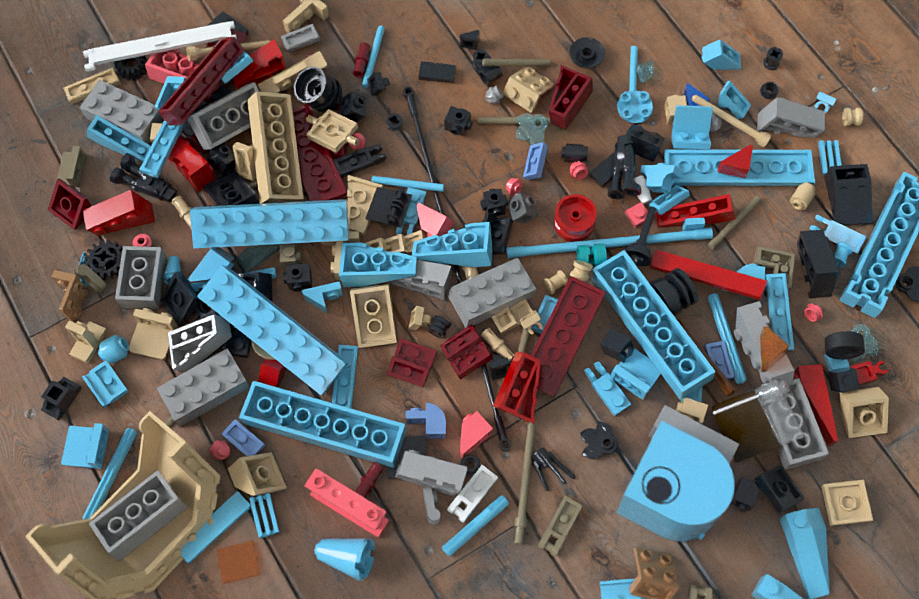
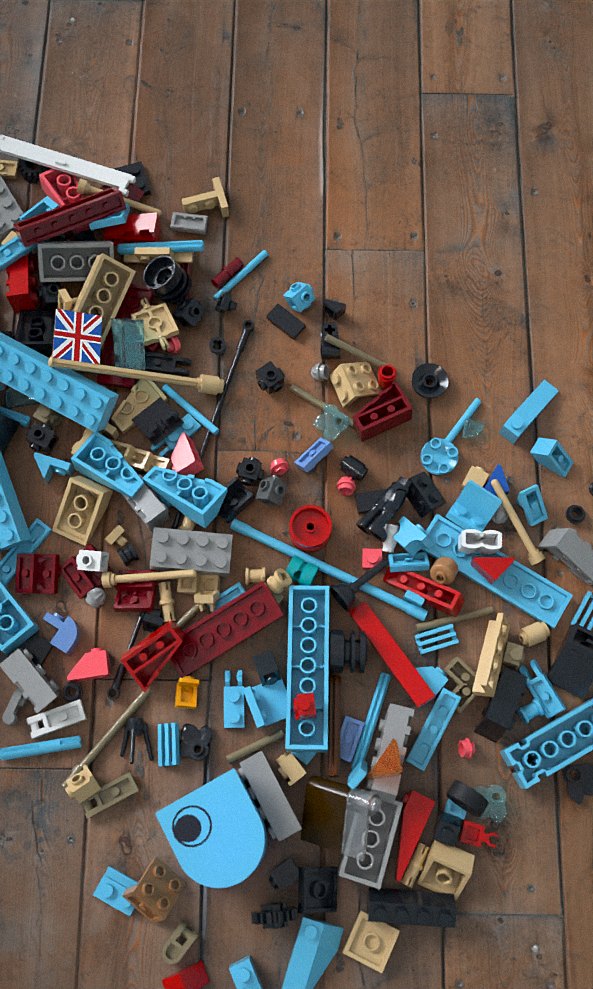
camera: 30 degrees right, 5 degrees up
(289, 179) = (79, 345): none -> flag
(309, 58) = (176, 246): none -> medium azure axle
(325, 157) = (128, 343): none -> clear light blue wedge
(372, 388) = (37, 573): none -> dark red slope
(414, 347) = (92, 560): none -> white brick
(436, 45) = (299, 296): none -> medium azure brick
(436, 376) = (96, 597): none -> light grey plate
(441, 352) = (110, 579): none -> tan piece
(534, 529) = (82, 785): none -> tan brick
(551, 67) = (386, 375): none -> red brick
(565, 405) = (186, 692): none -> light orange bracket
(569, 441) = (165, 744): none -> medium azure tile
(649, 414) = (255, 746): none -> dark tan bar
(676, 348) = (304, 706): none -> red brick
(679, 35) = (528, 411): none -> medium azure slope
(703, 187) = (444, 570): none -> medium nougat head
(716, 148) = (484, 542): none -> white brick
(740, 234) = (452, 634): none -> medium azure tile
(749, 377) = (357, 774): none -> medium azure tile
(762, 528) = (274, 915): none -> black gear
(785, 230) = (491, 657): none -> tan fence
(801, 221) = (513, 655): none -> dark tan brick
(840, 424) = (415, 865): none -> tan pin
(859, 455) = (411, 907): none -> black brick

